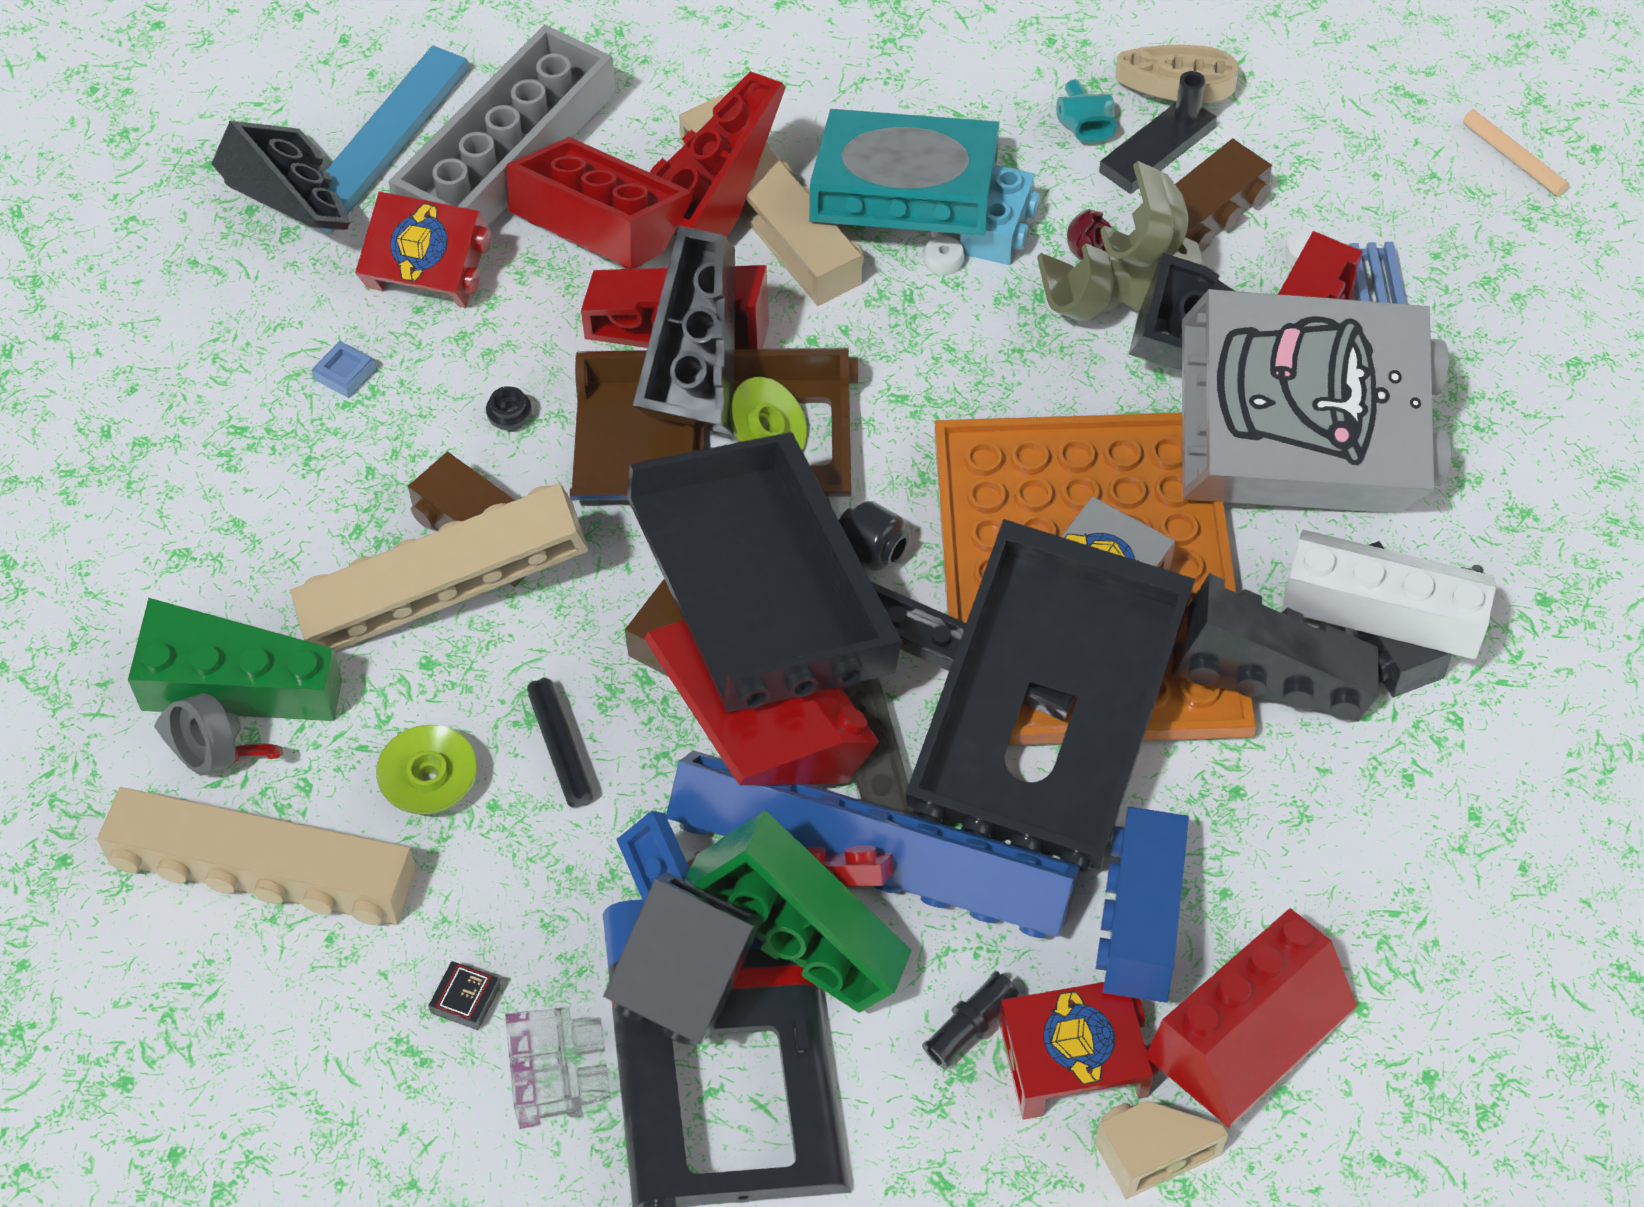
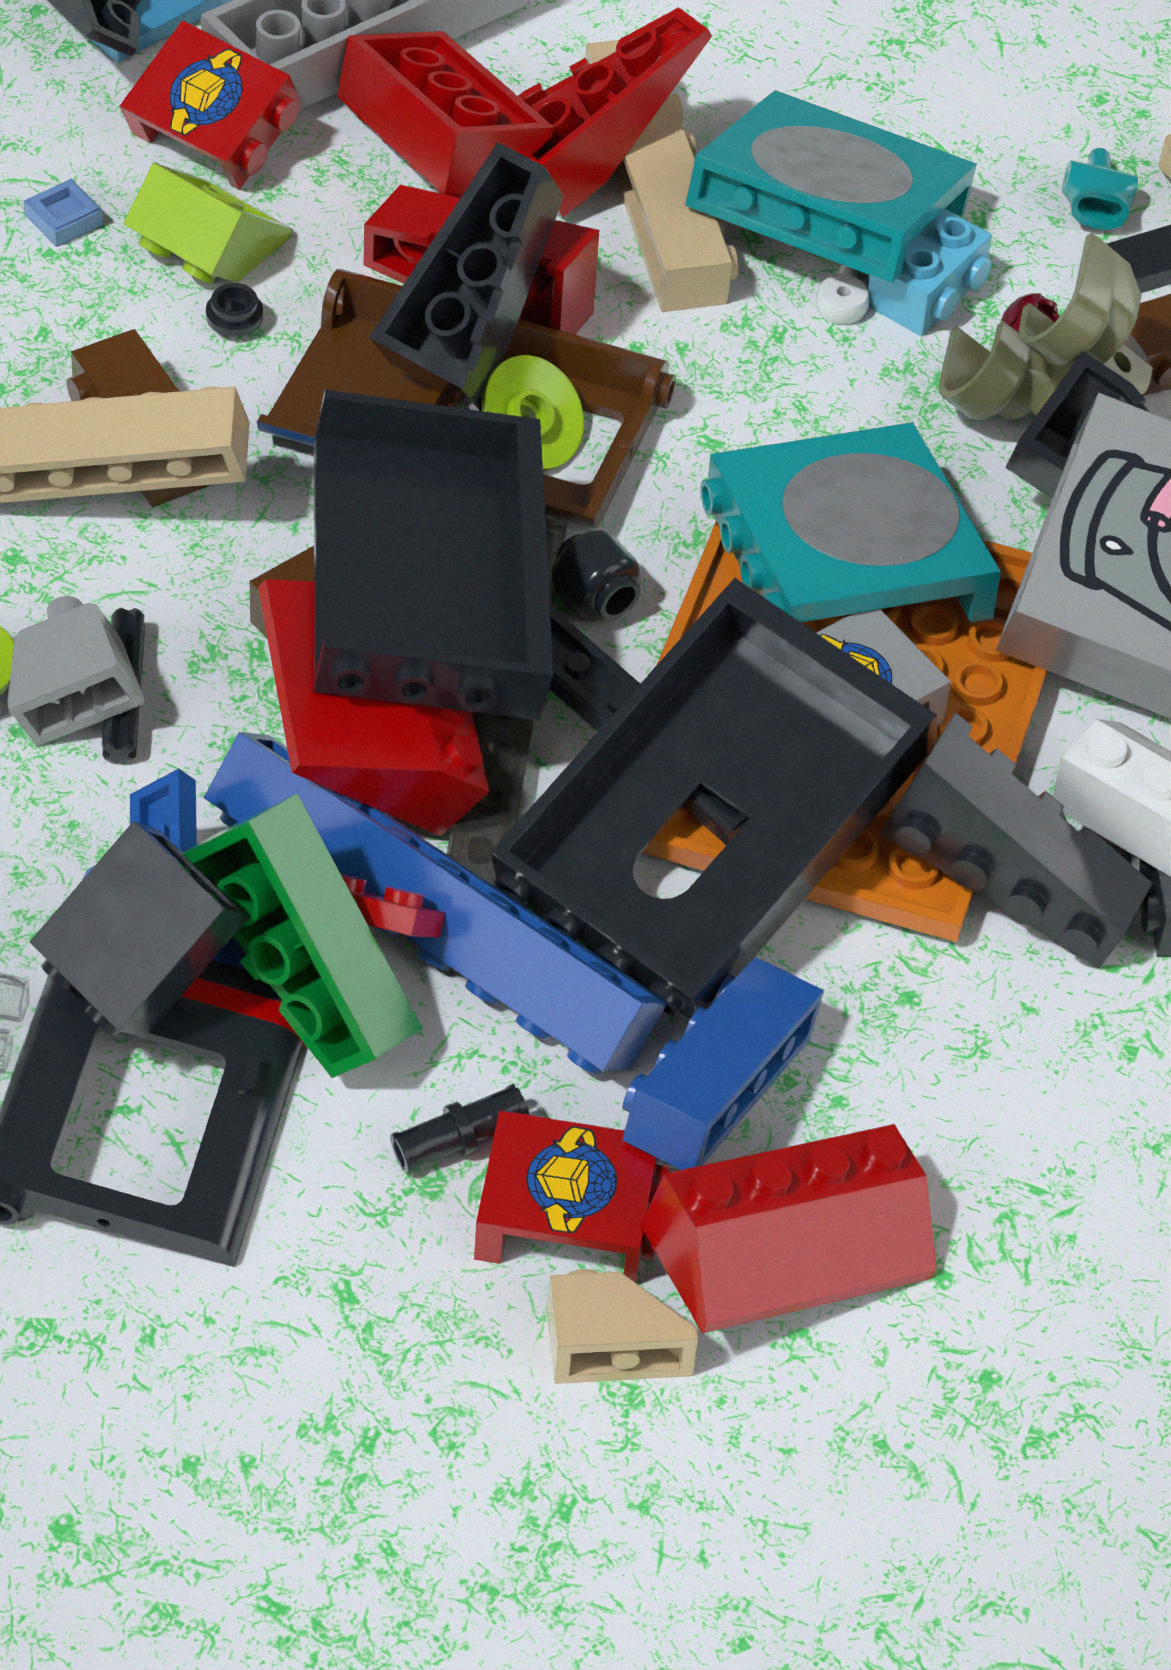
camera: 15 degrees right, 5 degrees down
(457, 348) = (202, 225): none -> lime slope
(520, 748) = (69, 672): none -> light grey torso
(1044, 441) = (849, 525): none -> teal panel

